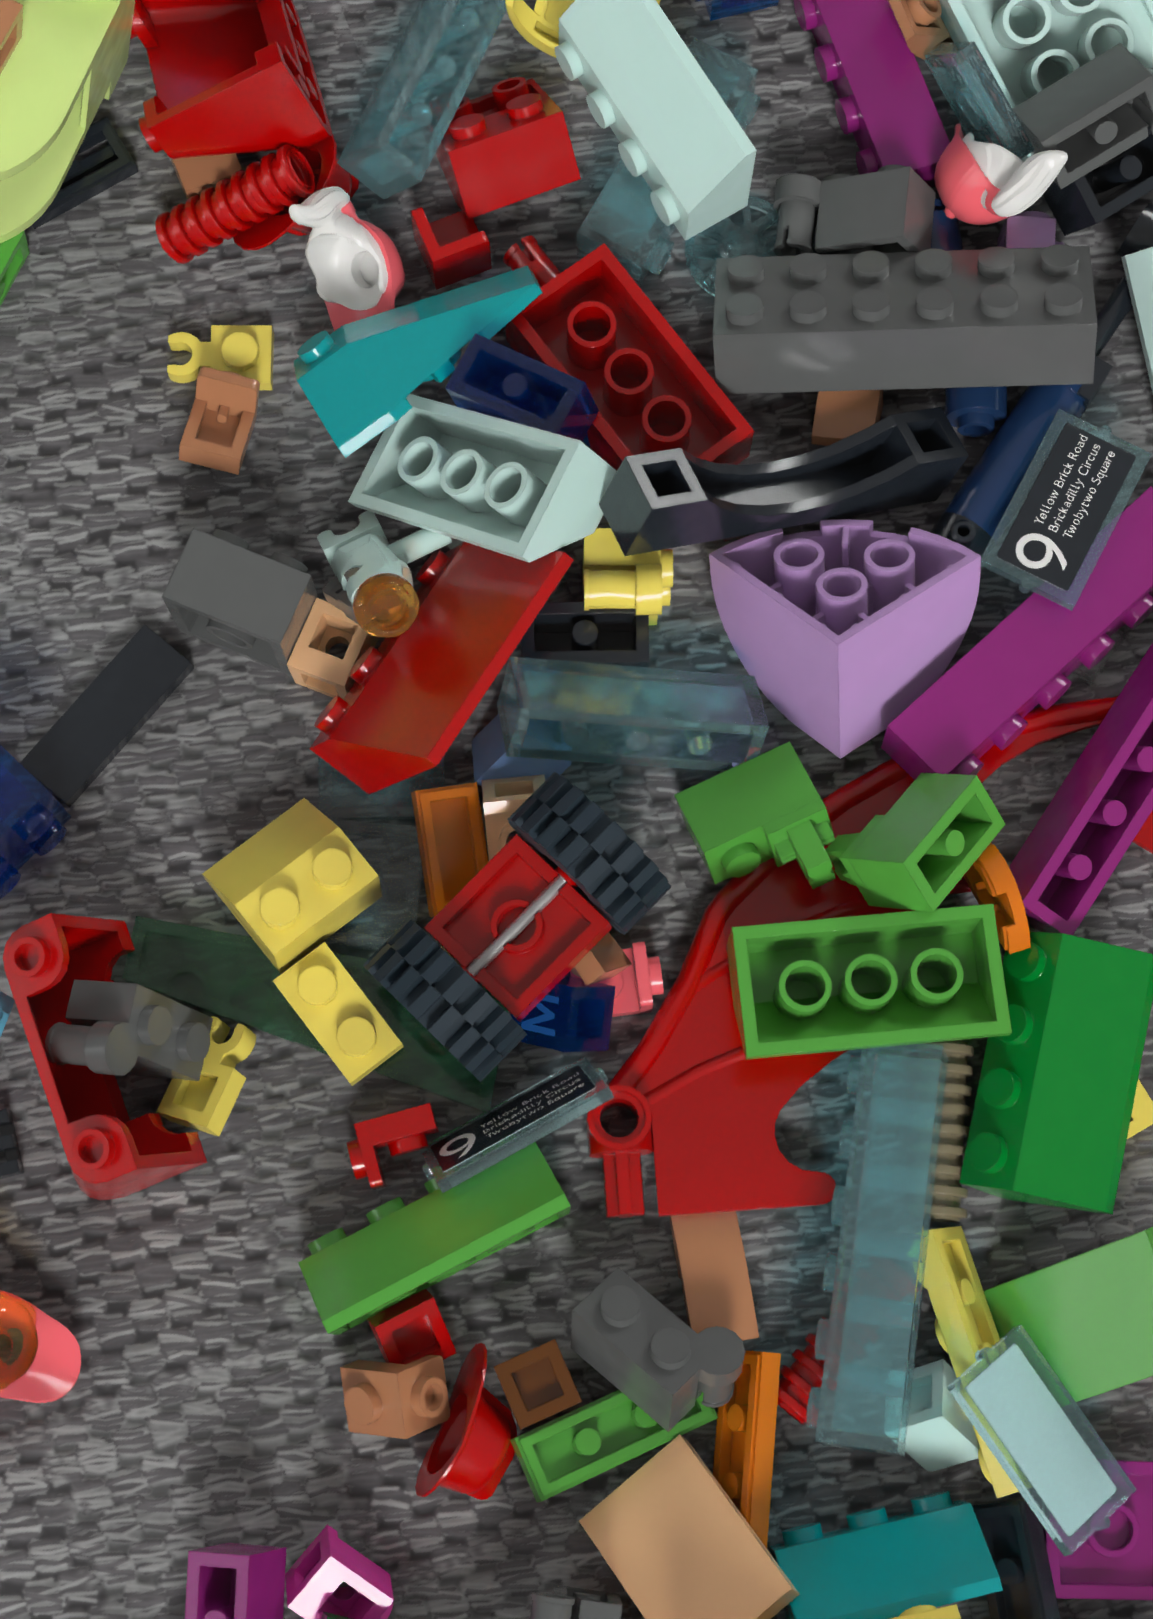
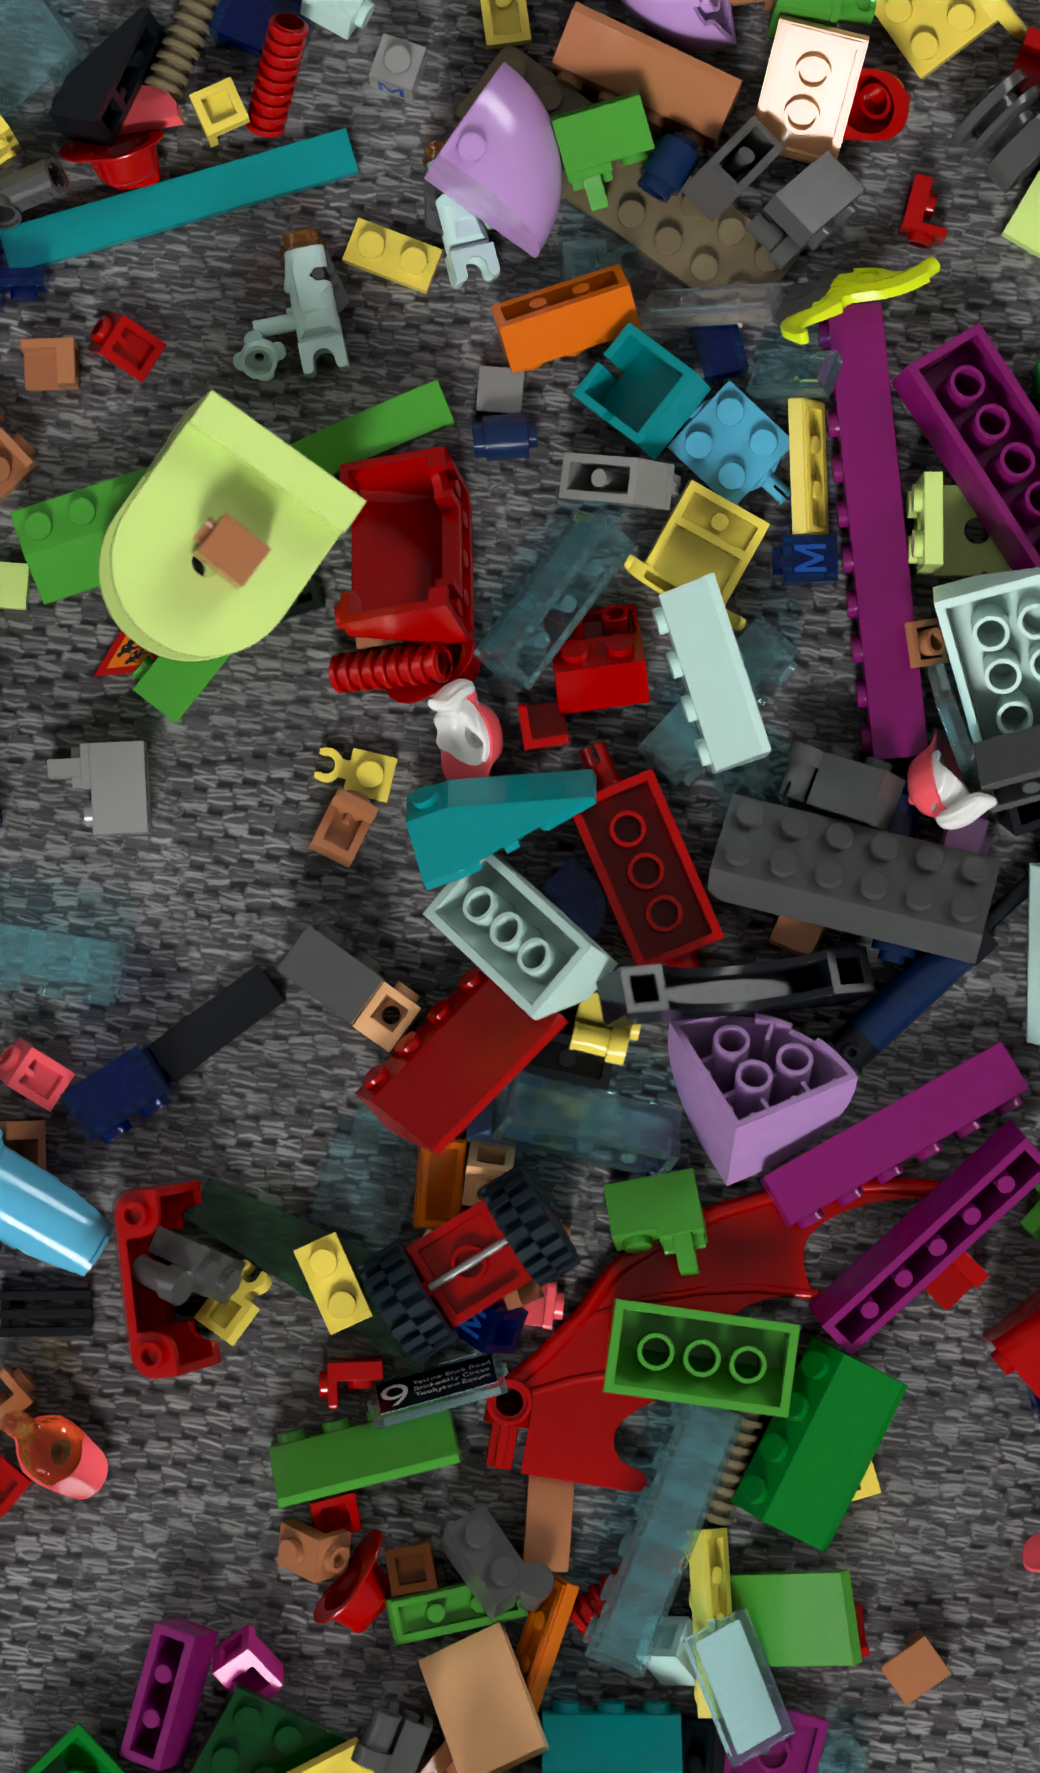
camera: 15 degrees right, 10 degrees up
(295, 883) = (321, 1182): light yellow slope -> none
(374, 577) = (424, 983): piece -> none
(521, 390) = (562, 881): clear blue brick -> none
(920, 844) = (763, 1269): bright green hinge -> none
(995, 884) = (807, 1313): orange tile -> none
(1065, 509) = (933, 1046): piece -> none

